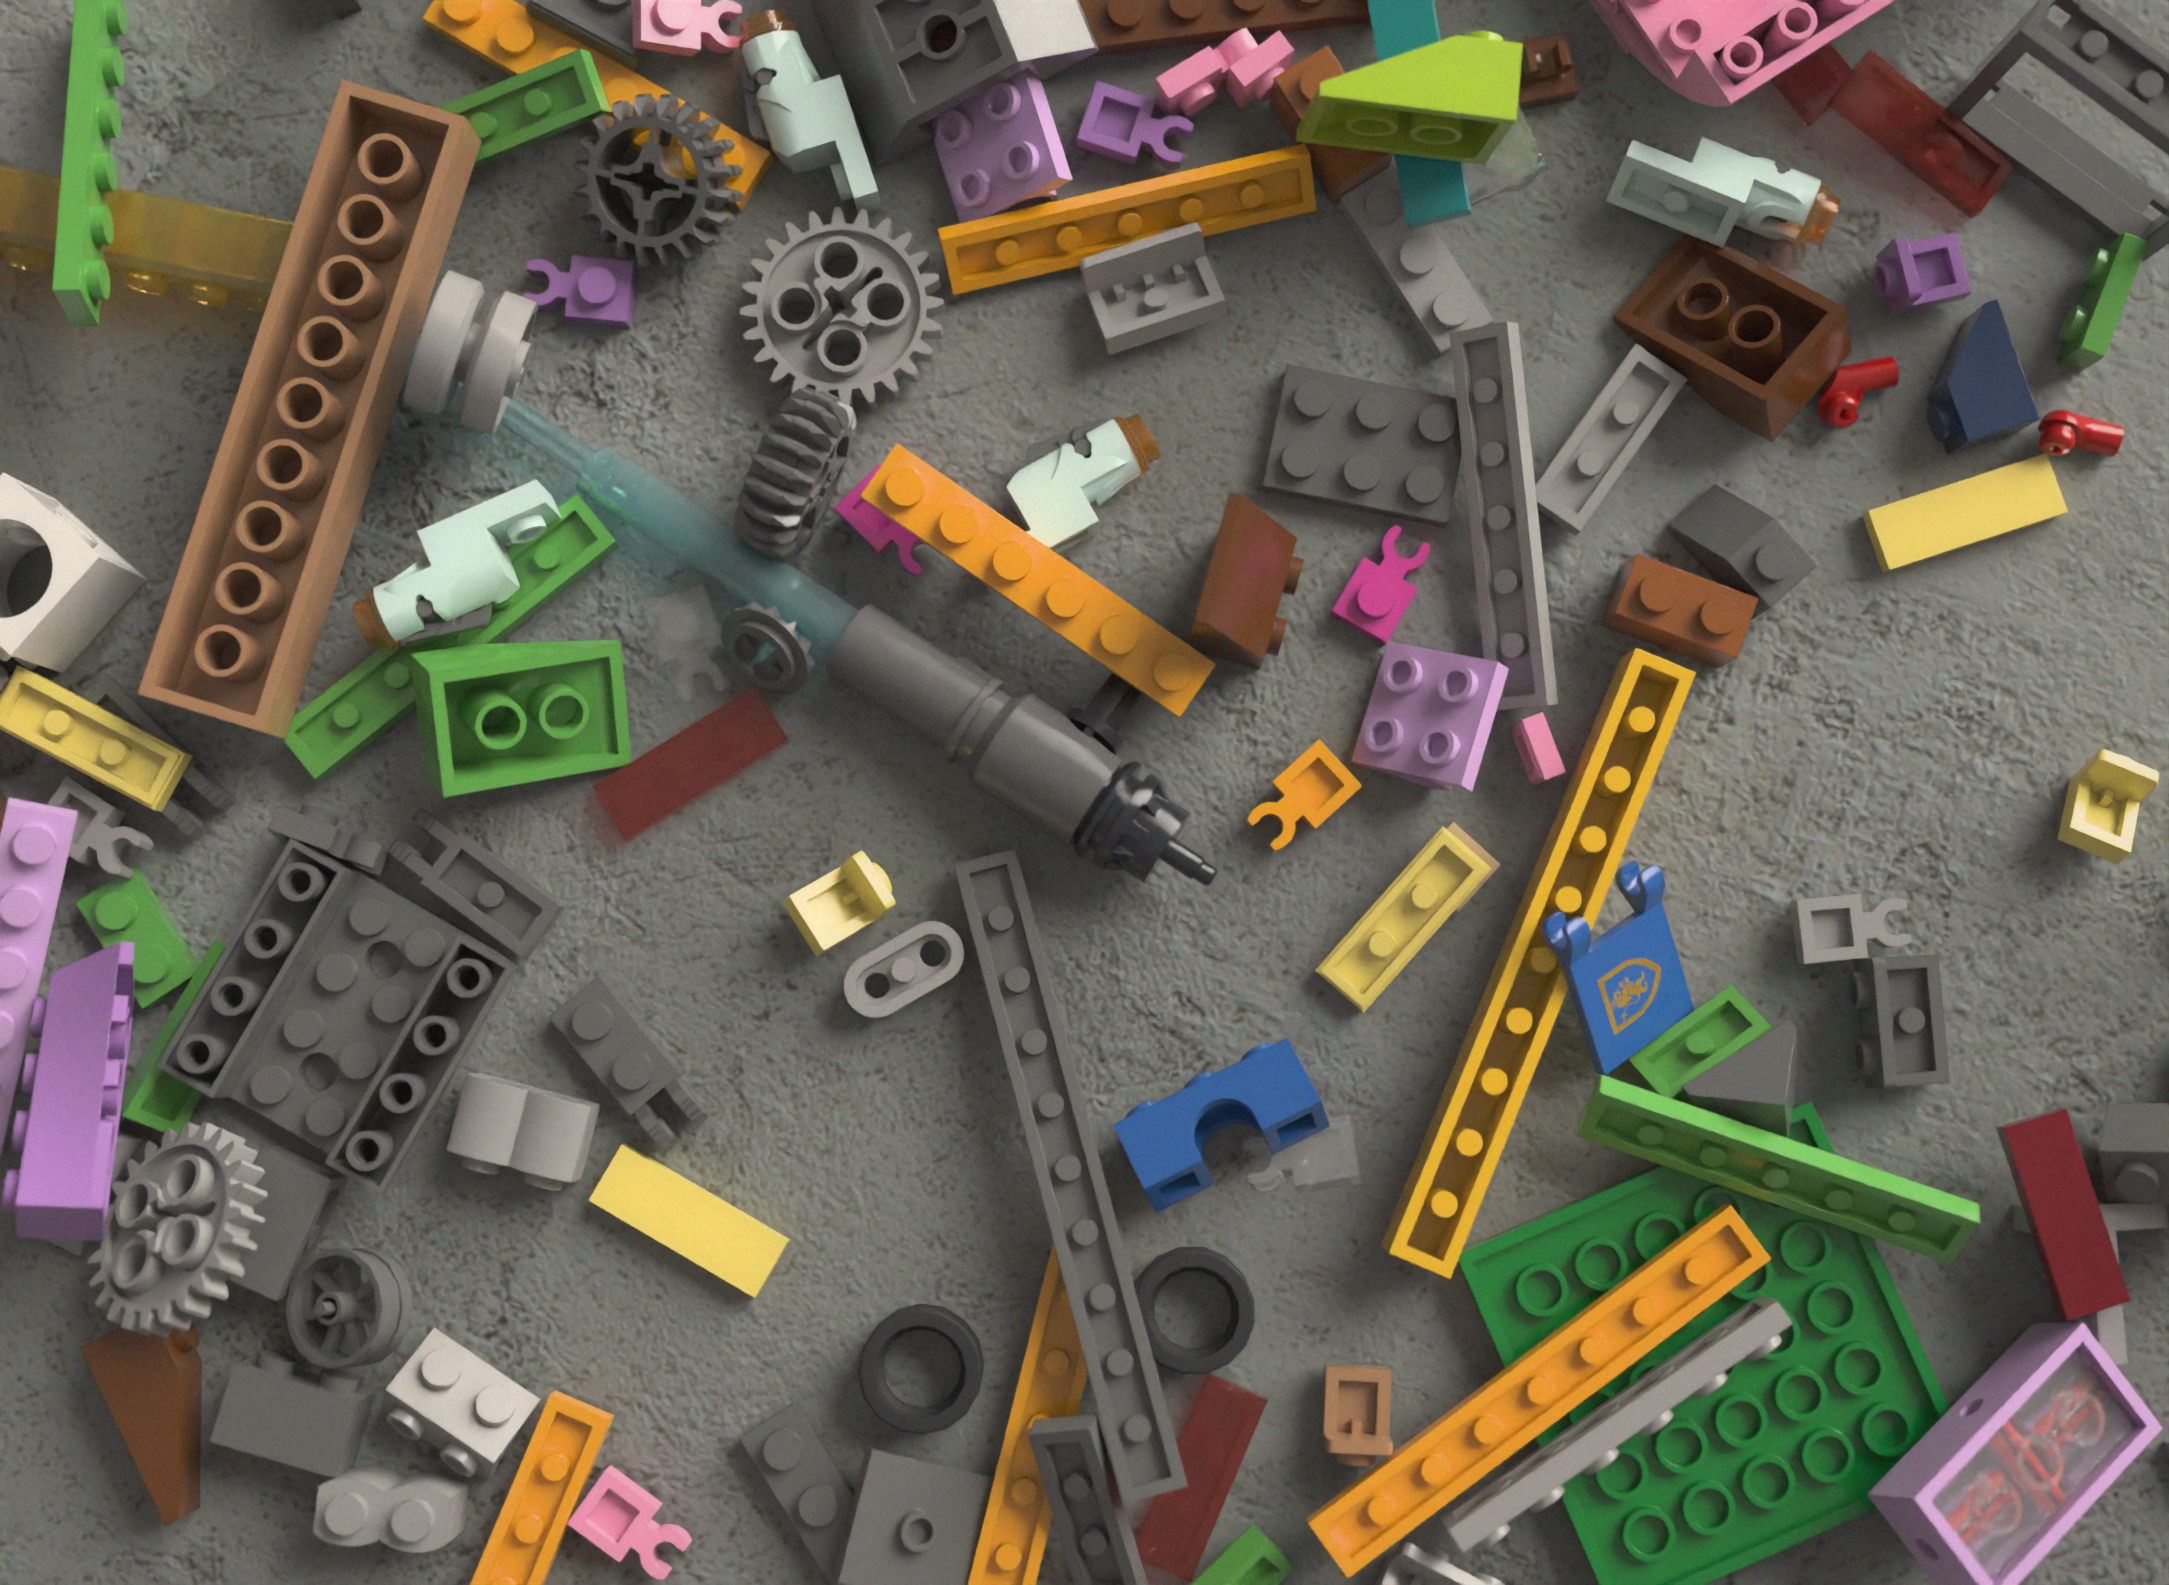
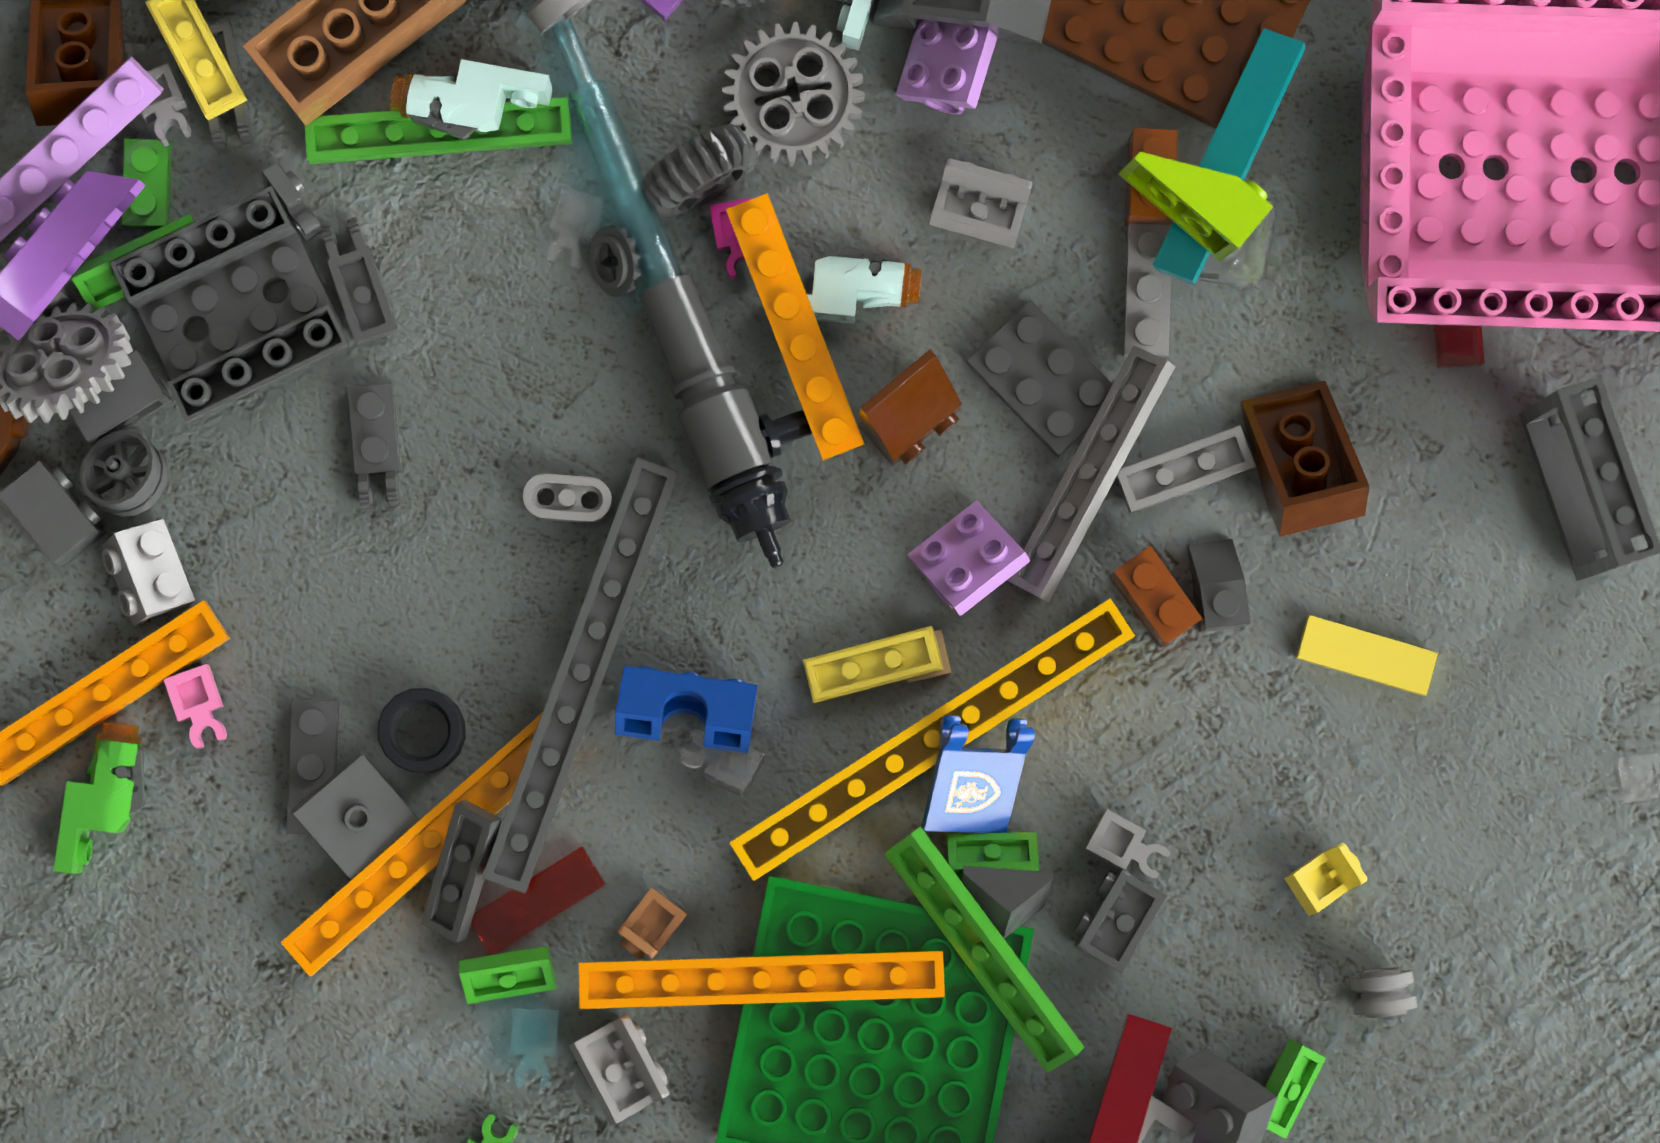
camera: 30 degrees right, 0 degrees up
(382, 1505) = (66, 596): light grey brick -> none
(519, 712) = (449, 201): bright green slope -> none
(522, 1129) = (289, 440): light grey brick -> none
(689, 1220) = (348, 557): light yellow tile -> none
(691, 764) = (527, 297): clear red tile -> none
(841, 903) = (557, 435): light yellow bracket -> none
(1074, 228) = (968, 140): light orange plate -> none
(1122, 125) = (1030, 96): medium lavender plate -> none
(1195, 81) = (1091, 98): bright pink plate -> none
(1240, 1325) = (626, 822): black tyre -> none
(1255, 72) = (1132, 115): bright pink plate -> none
(1309, 790) = (872, 554): light orange plate -> none
(1377, 593) = (989, 469): dark pink plate -> none
(1537, 749) = (1018, 620): bright pink tile -> none
(1546, 72) = (1299, 228): reddish brown tile -> none
(1637, 1408) = (811, 1029): light grey plate -> none
(1721, 191) = (1353, 369): light aqua plate -> none
(1847, 387) = (1350, 535): red arm -> none
(1921, 134) = (1497, 417): clear red tile -> none
(1921, 273) = (1438, 498): medium lavender bracket -> none
(1980, 385) = (1424, 589): dark blue slope -> none
(2065, 430) = (1457, 645): red arm -> none
(2108, 281) = (1546, 575): bright green plate -> none

